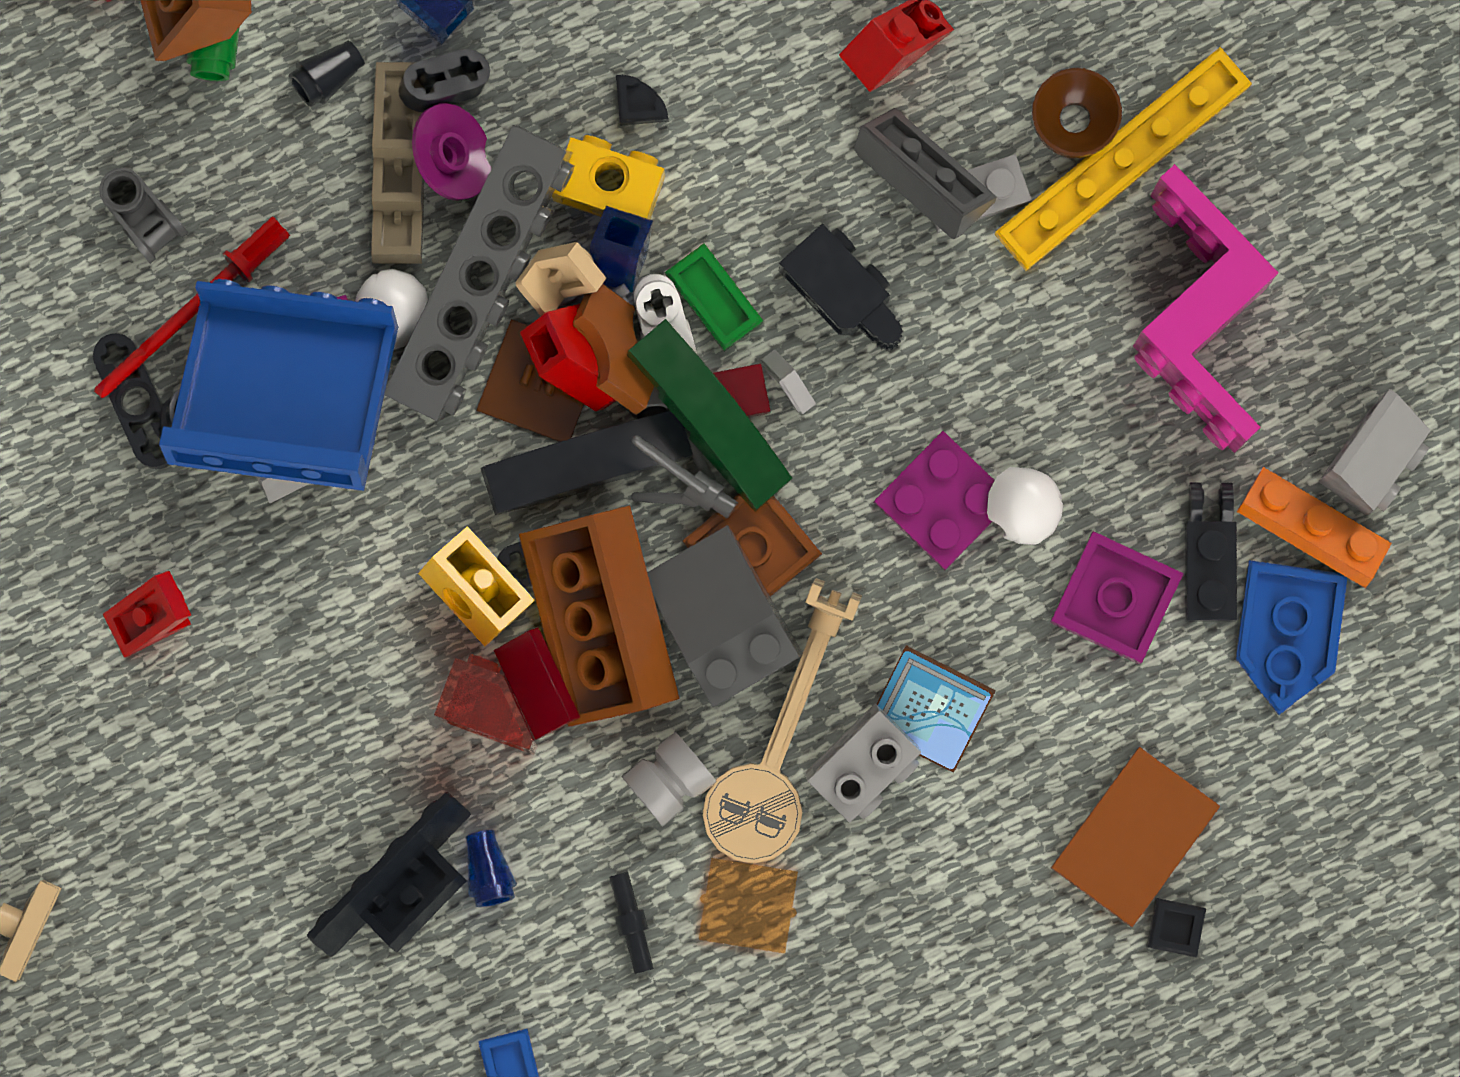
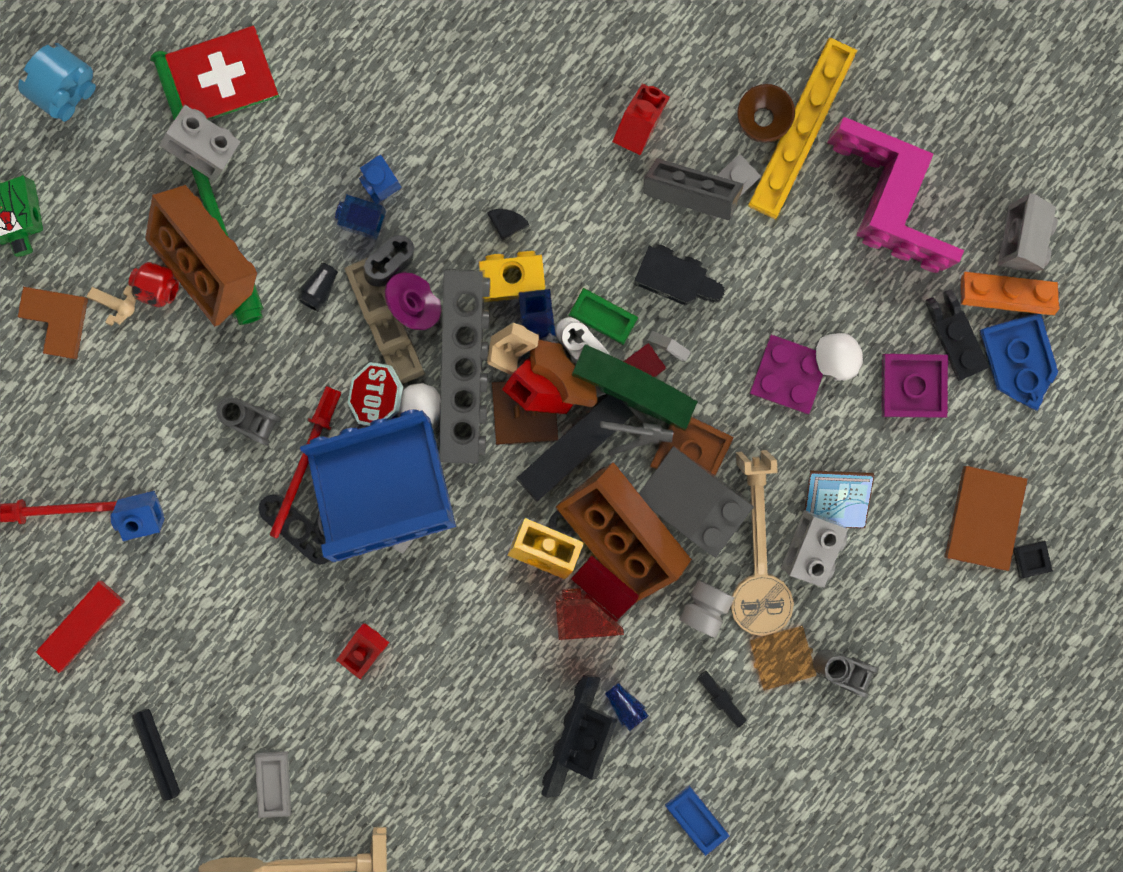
camera: 25 degrees left, 5 degrees up
(337, 257) = (375, 393): none -> piece
(834, 970) = (849, 672): none -> dark grey piece

